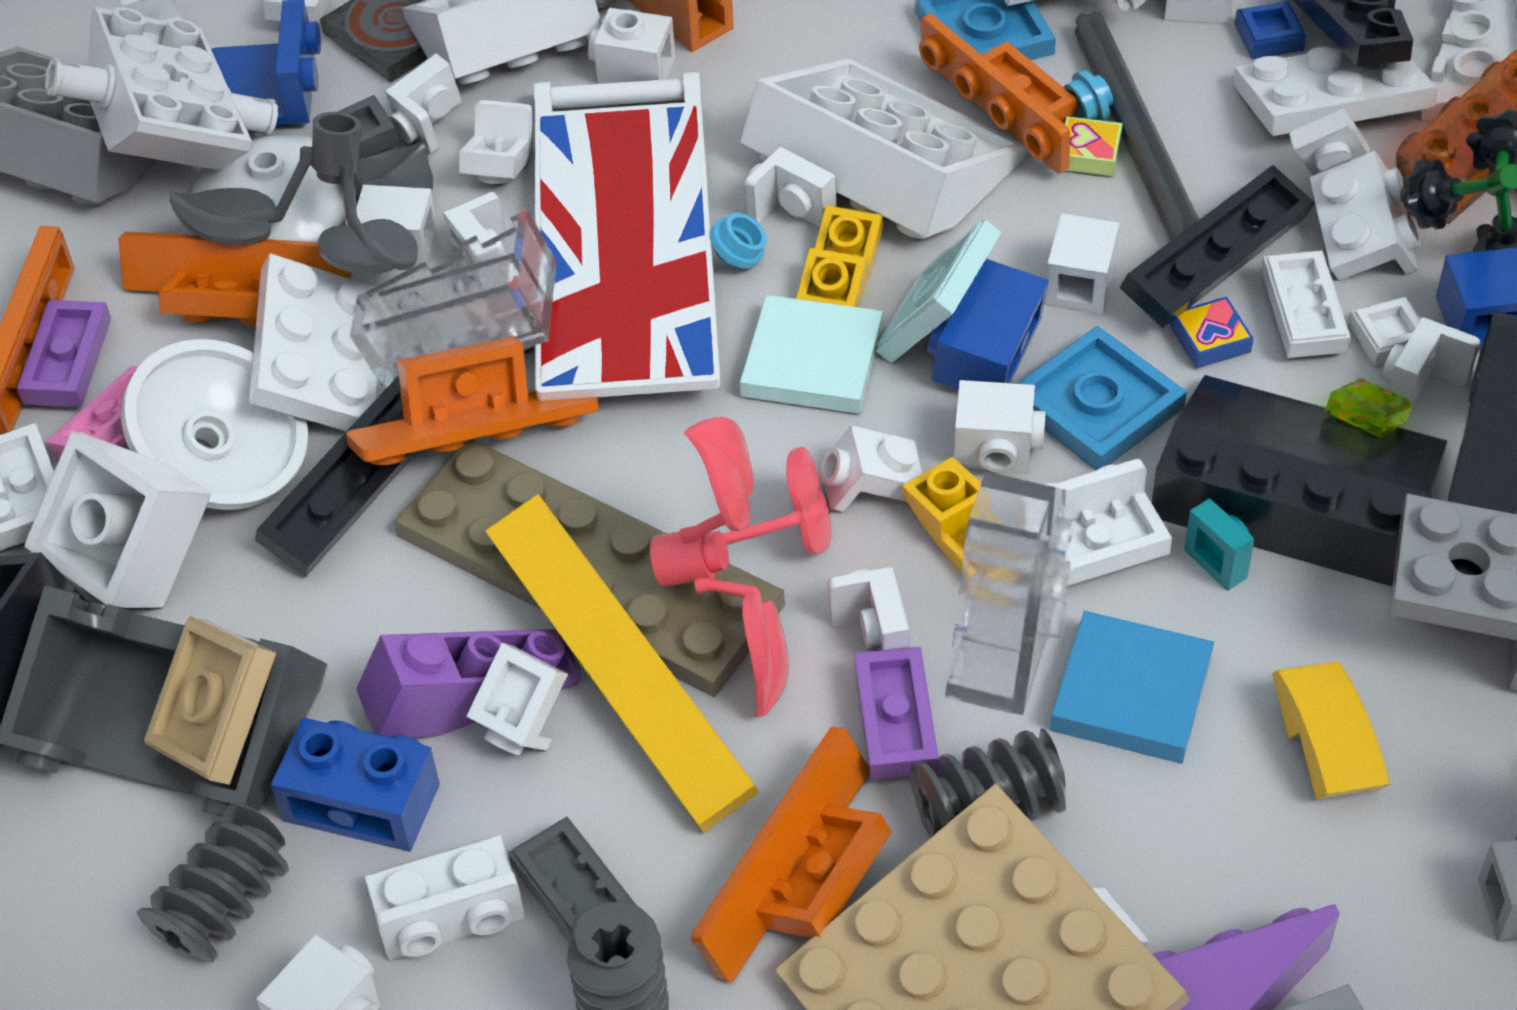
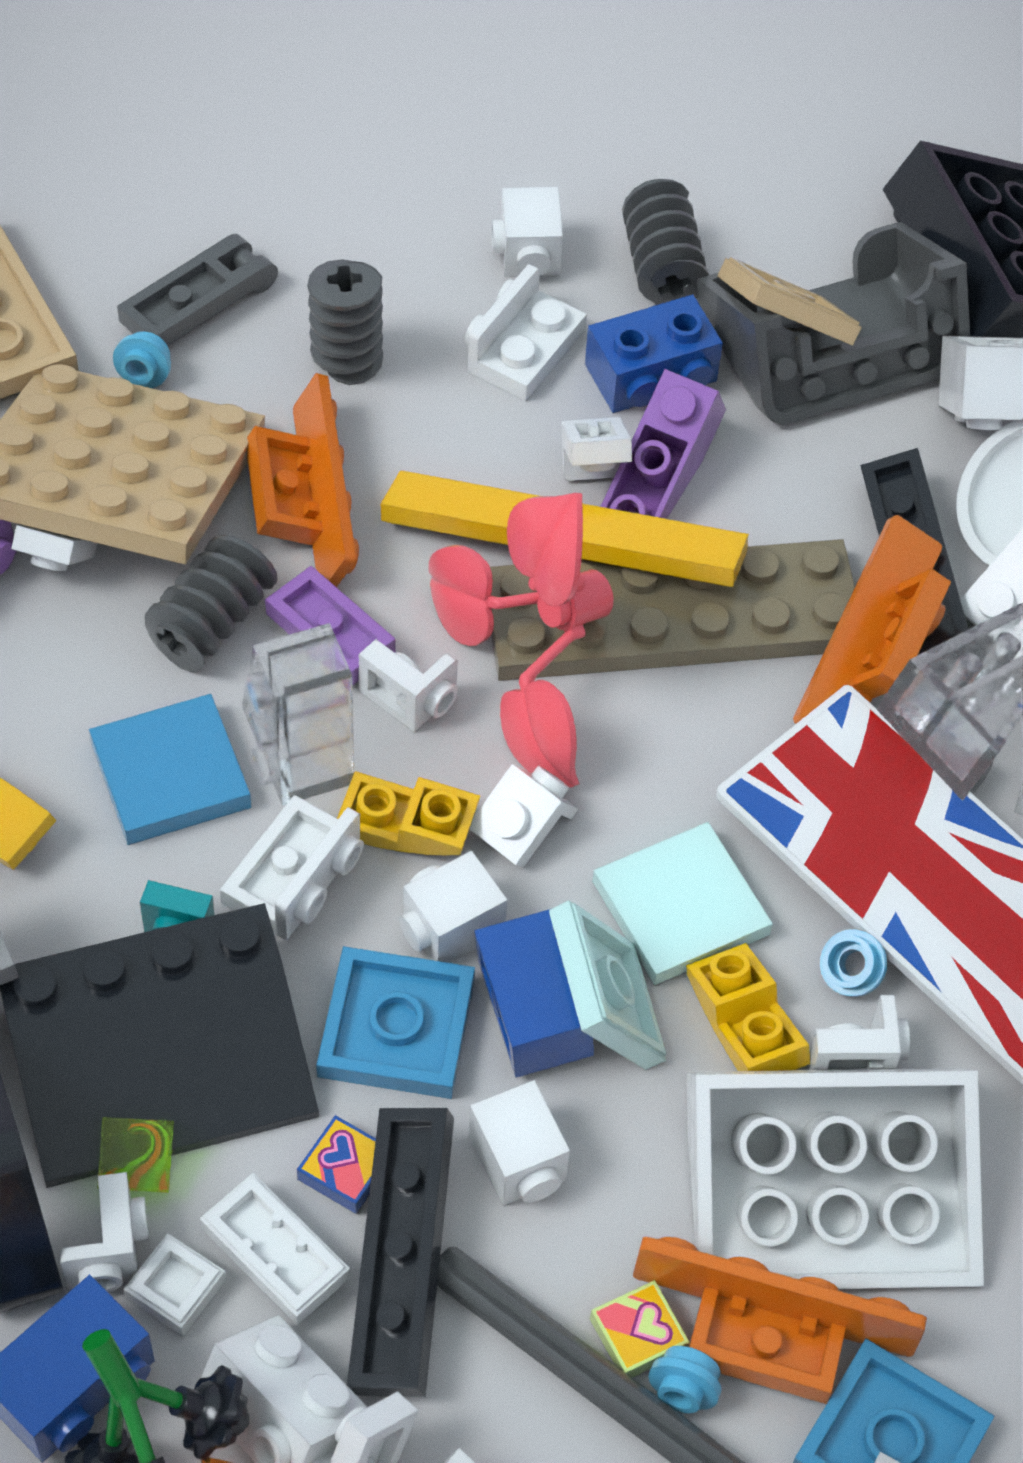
camera: 135 degrees right, 5 degrees up
(565, 874) = (442, 386): dark grey plate -> none

